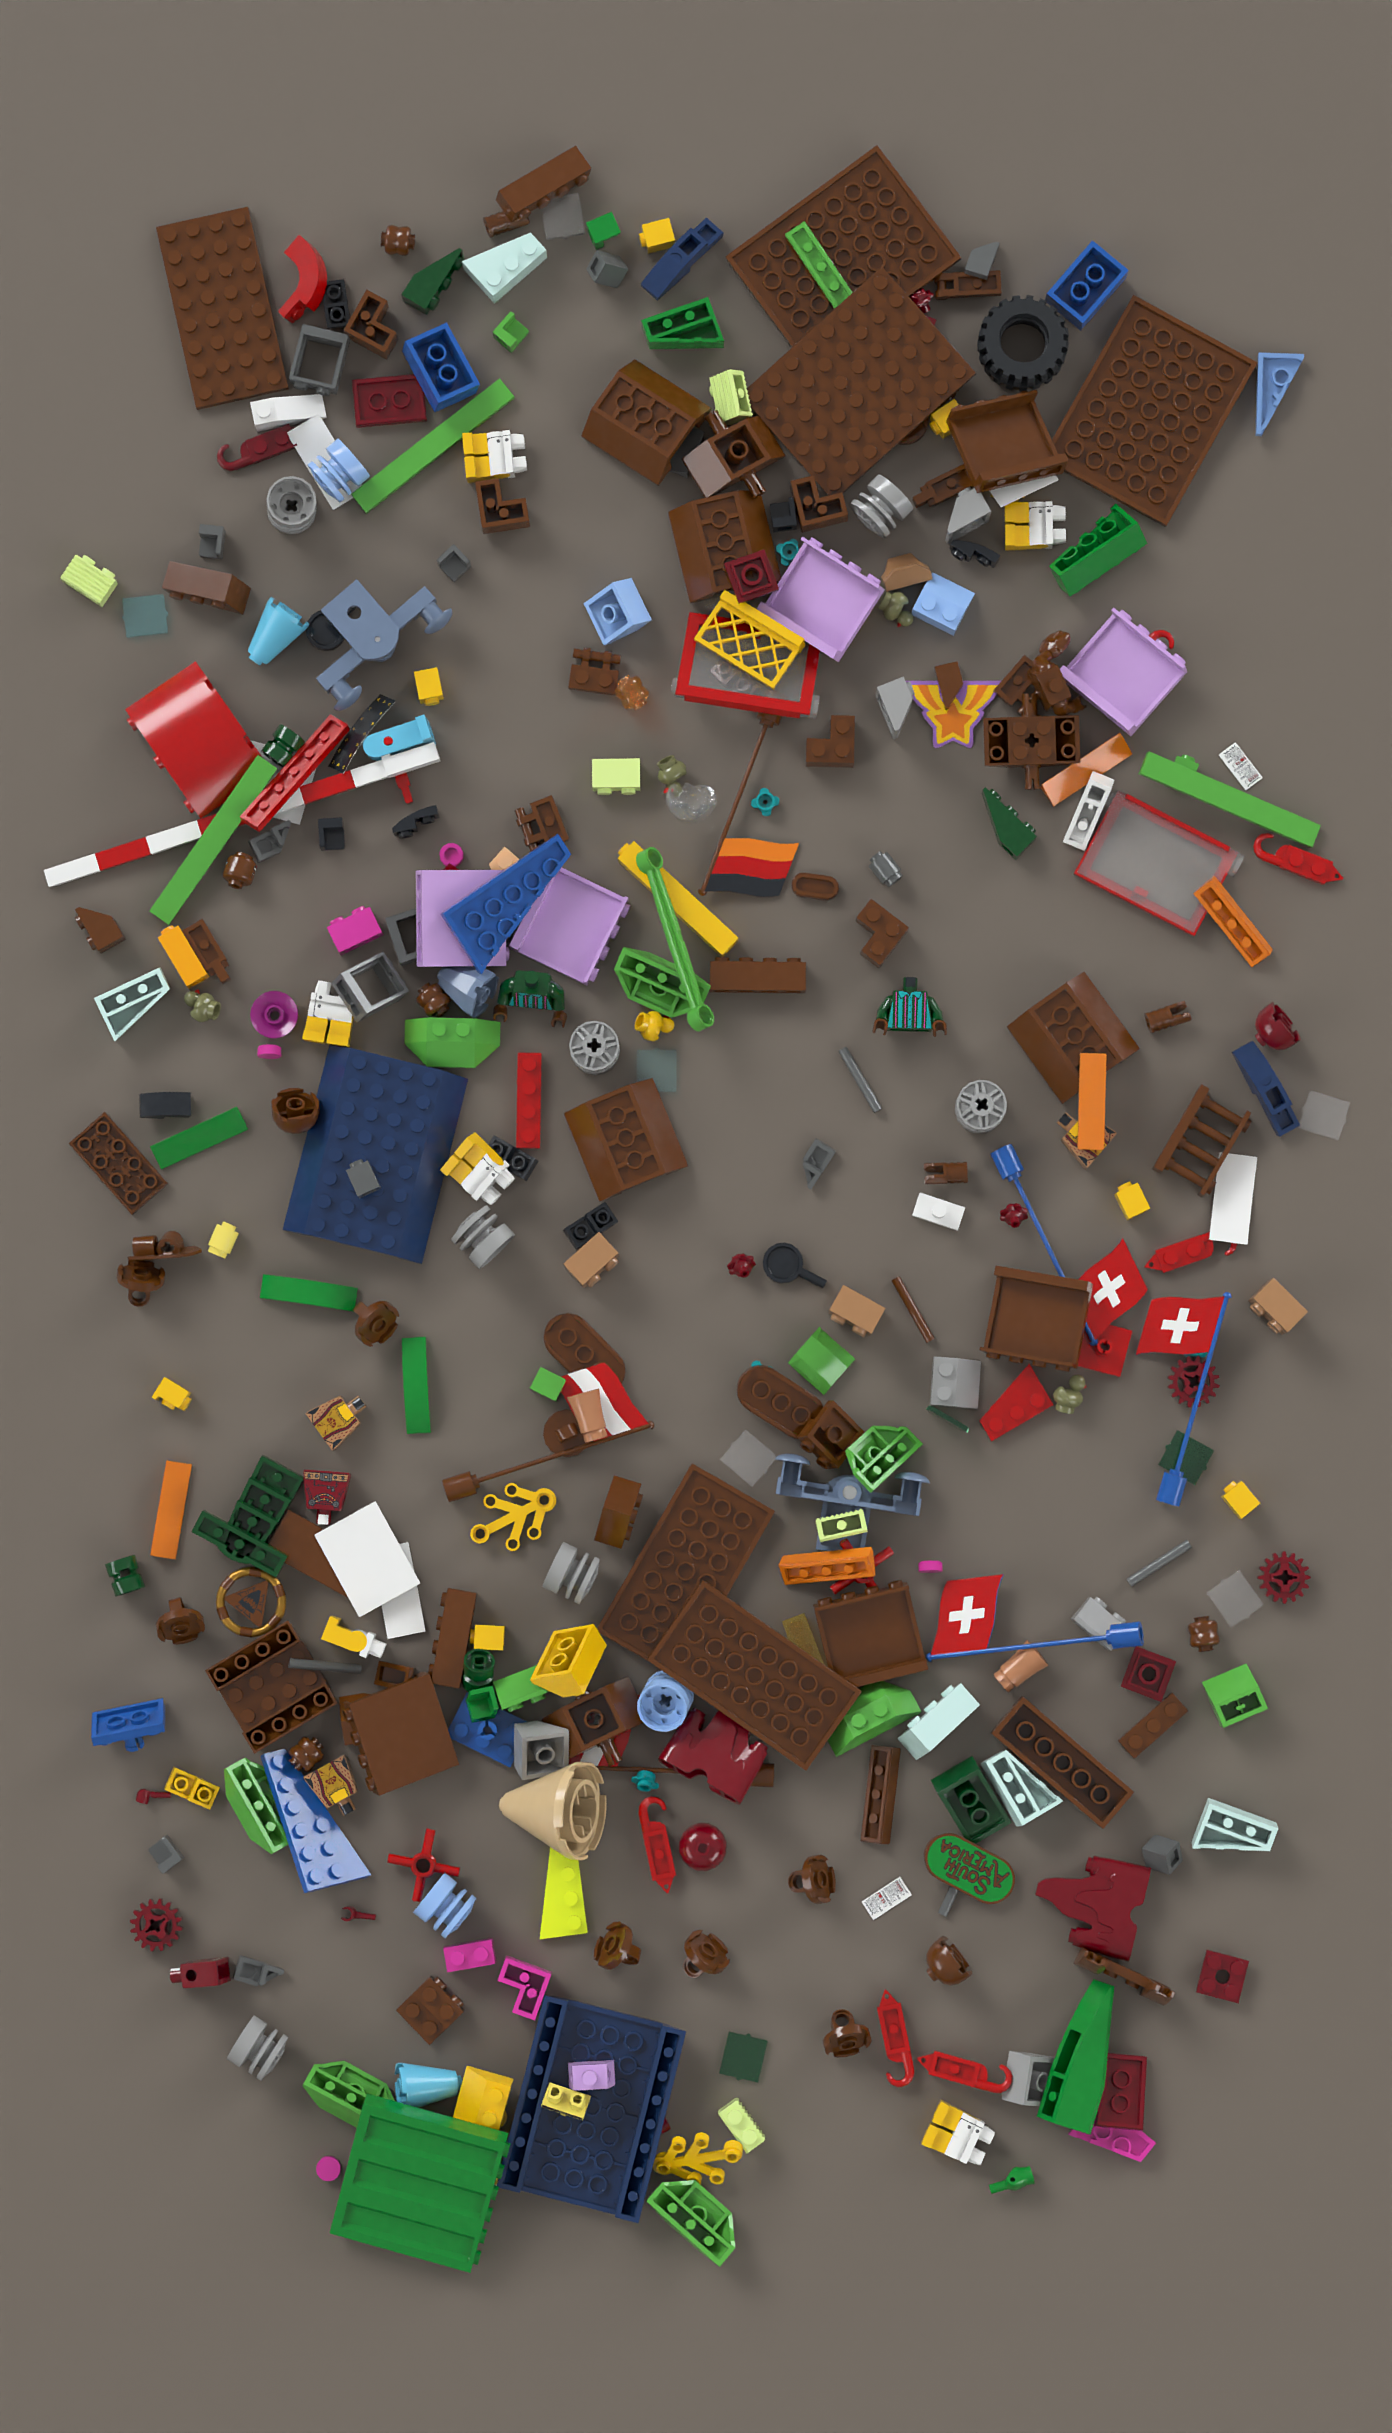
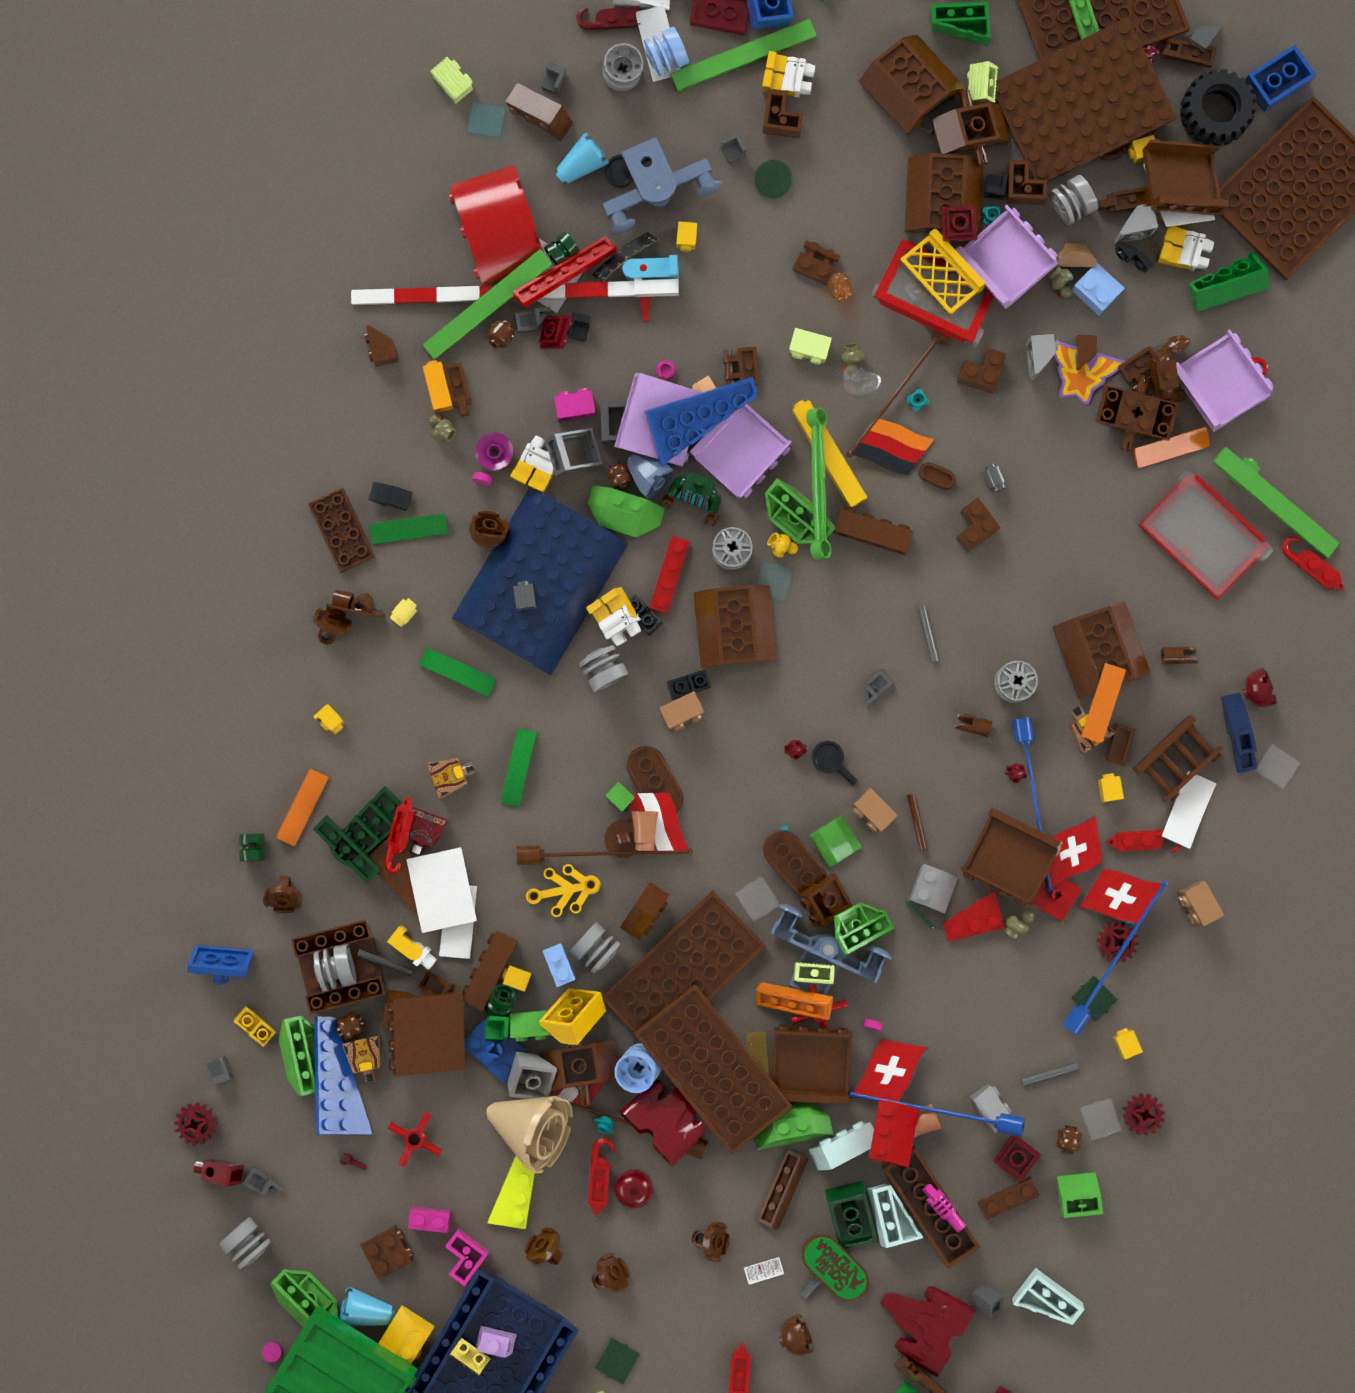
camera: 10 degrees right, 0 degrees up
(130, 1001) = (388, 408): light aqua wedge -> none
(144, 1795) = (216, 1020): dark red hand -> none
(250, 1602) = (342, 896): piece -> none
(267, 1689) = (335, 967): none -> light grey wheel
(296, 1506) = (399, 833): none -> red plate
(304, 849) = (554, 332): none -> dark red piece
(375, 1322) = (501, 709): reddish brown tile -> none
(407, 826) = (639, 337): black slope -> none
(445, 1905) = (422, 1176): light blue wheel -> none
(512, 585) = (773, 179): none -> clear green tile
(535, 1605) = (559, 964): none -> light blue brick
(617, 611) = (847, 221): light blue slope -> none
(847, 2039) = (701, 1372): reddish brown tile -> none
(909, 1011) = (982, 592): torso -> none
(938, 1211) = (959, 752): white tile -> none
(991, 1687) = (893, 1133): none -> red slope
(1009, 830) = (1099, 477): dark green slope -> none
(1075, 1757) = (943, 1207): none -> dark pink hinge
(1088, 810) = (1164, 479): white slope -> none
(1128, 1144) = (1120, 744): none -> reddish brown tile
(1233, 921) = (1251, 597): orange slope -> none
(1240, 766) = (1290, 480): white sticker -> none

